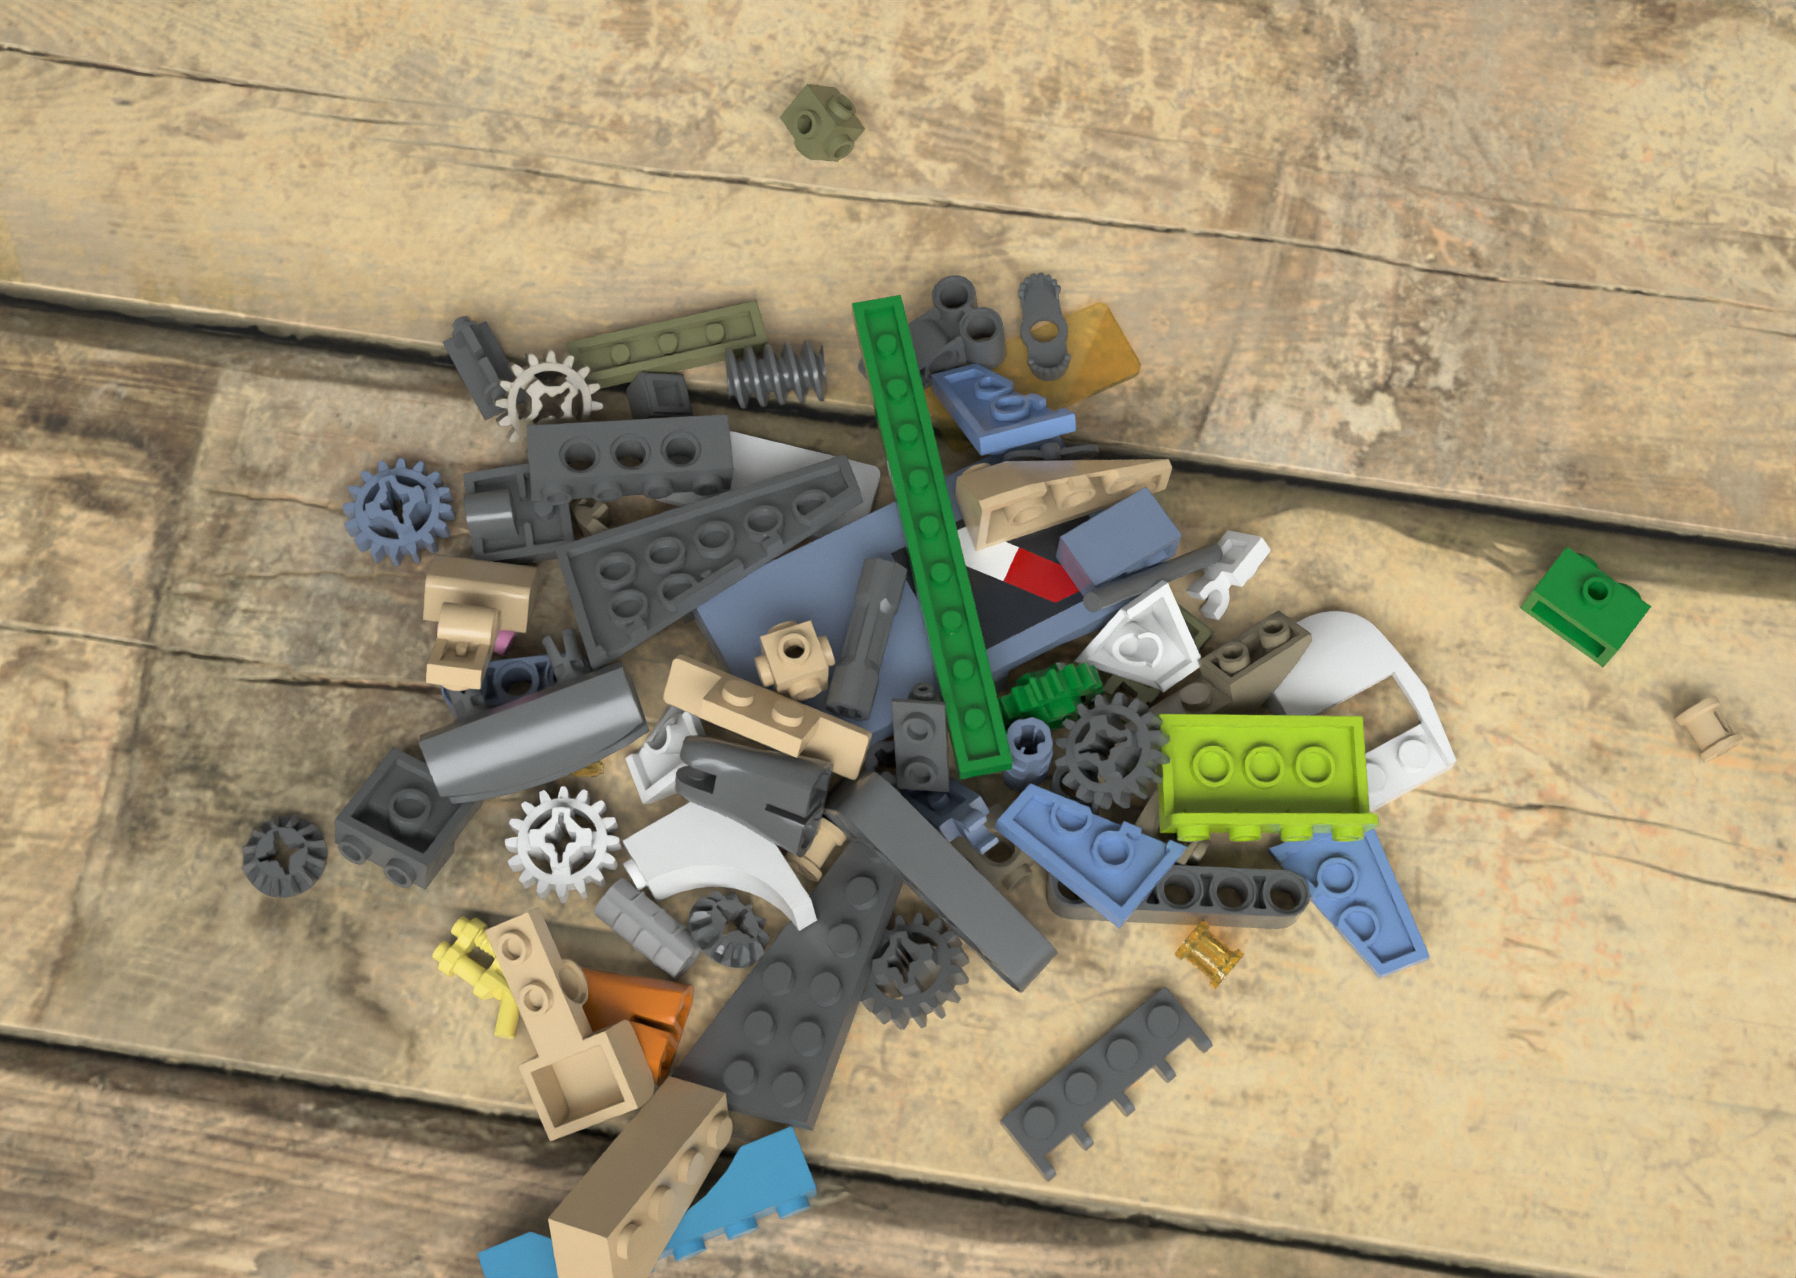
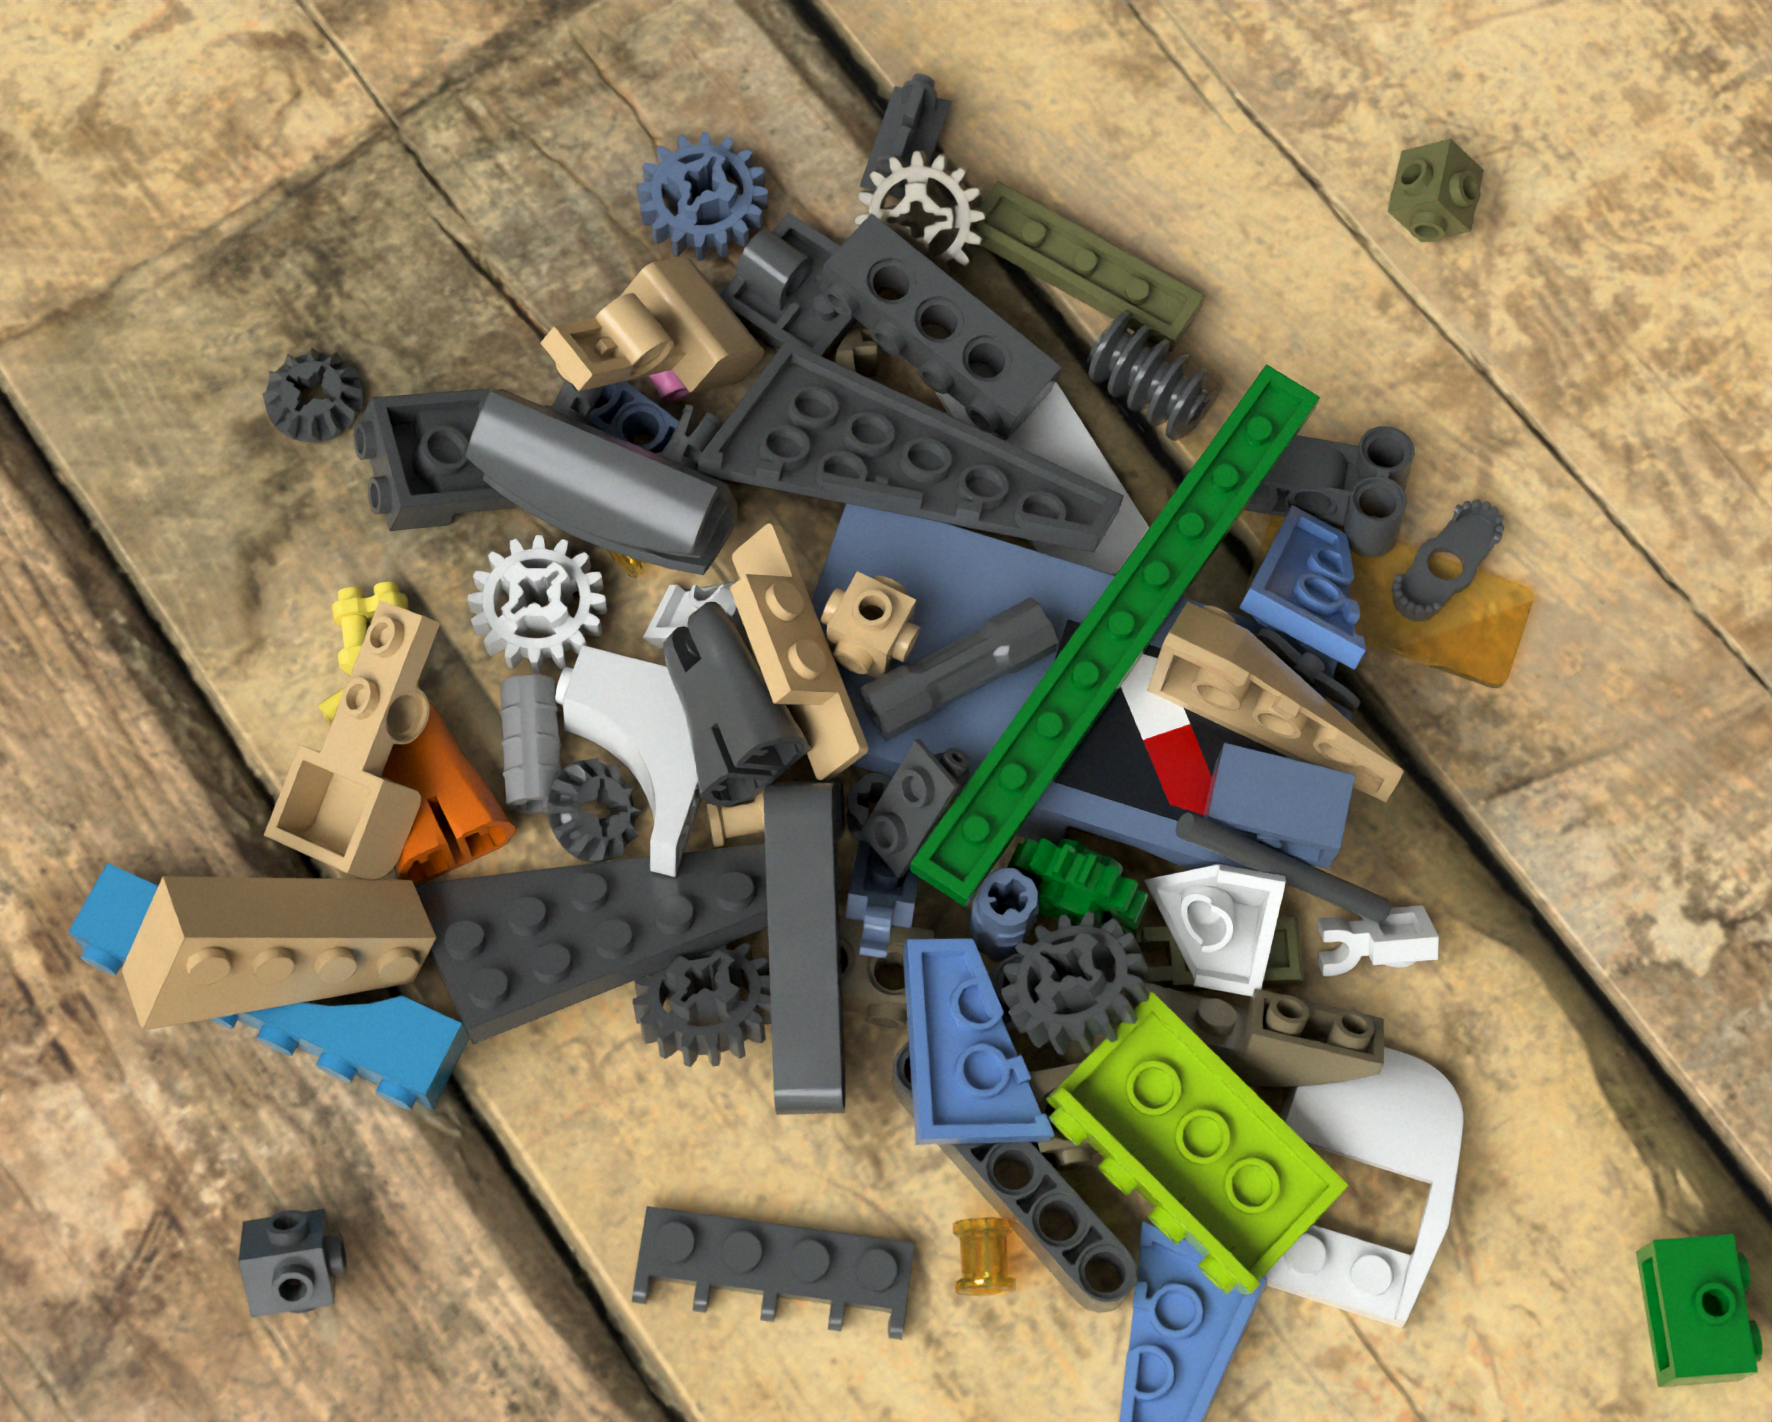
camera: 45 degrees right, 0 degrees up
(658, 396) = (1031, 304): dark grey slope -> none

